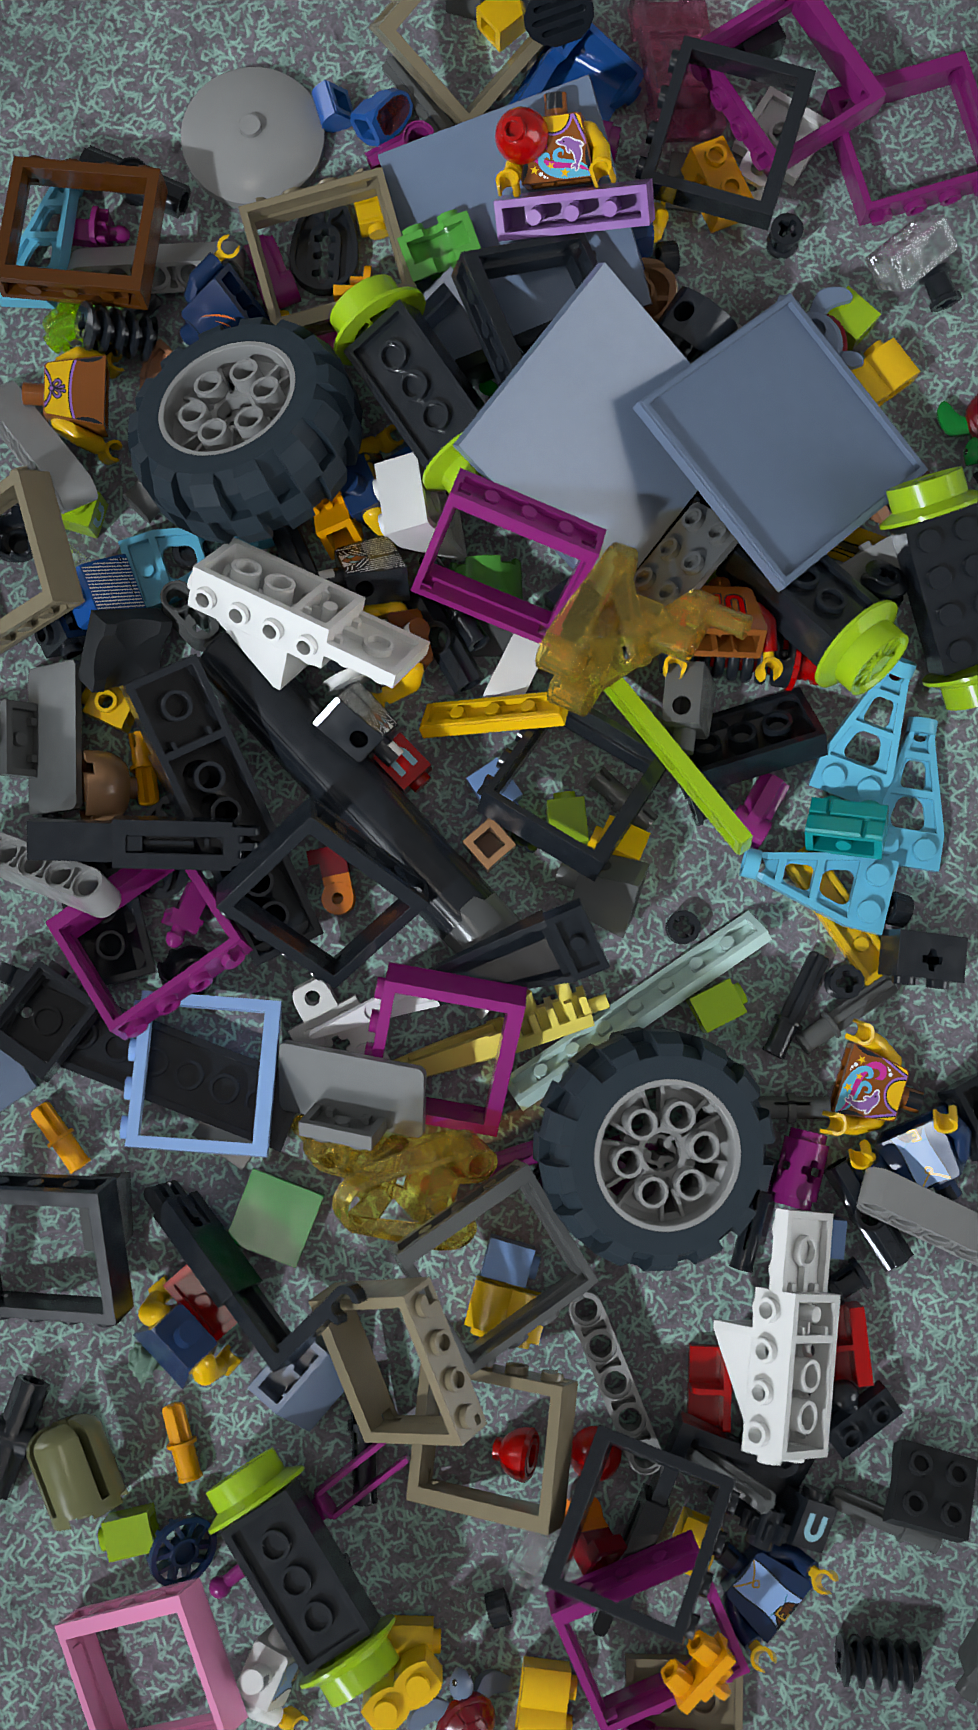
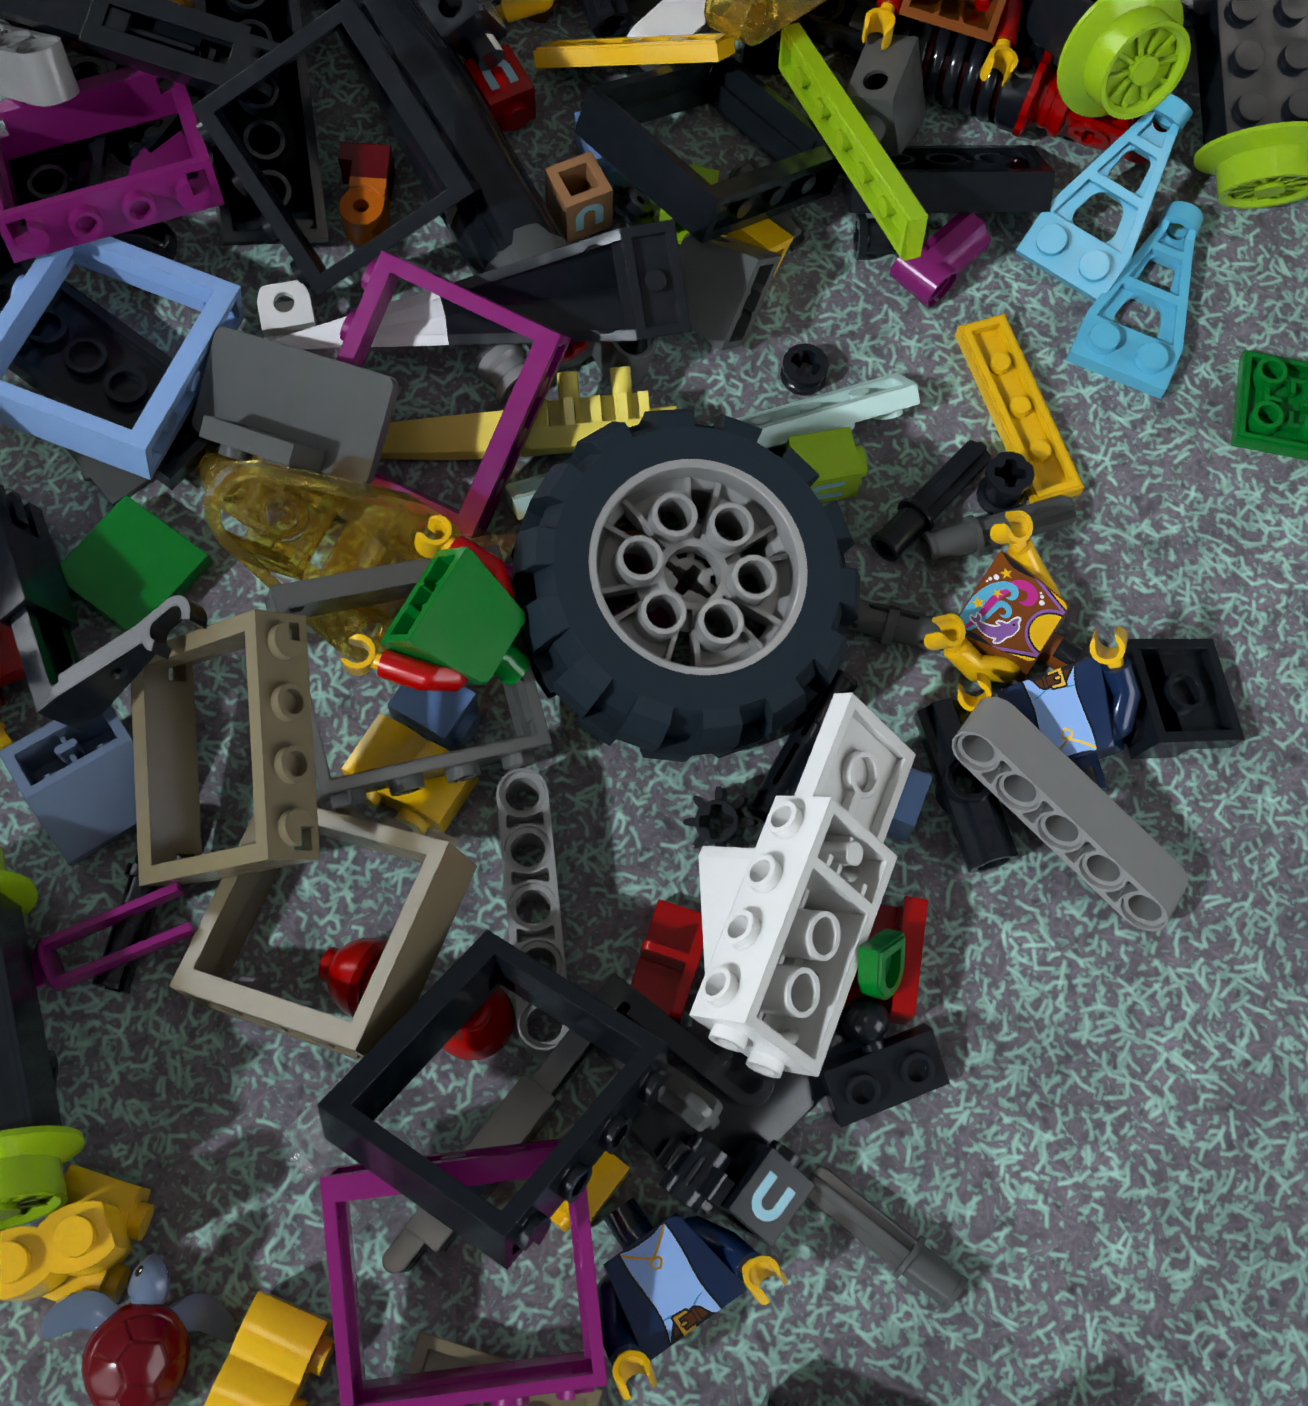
camera: 10 degrees right, 15 degrees down
(498, 1608) = (251, 1200): black axle -> none
(520, 1241) = (453, 623): none -> green torso
(597, 1541) = (429, 1113): dark red leg -> none
(703, 1675) = (503, 1360): light orange hips -> none
(715, 1296) = (711, 809): none -> black gear
(796, 1185) = (895, 683): magenta piece -> none
(846, 827) = (1054, 295): teal brick -> none
(847, 1365) = (881, 964): none -> green tile
(848, 1280) = (916, 872): black bush -> none
(868, 896) = (1065, 389): medium azure plate -> none
(900, 910) = (1098, 417): black axle -> none
(931, 1491) = (965, 1203): black brick -> none
(942, 958) = (1121, 475): black brick -> none

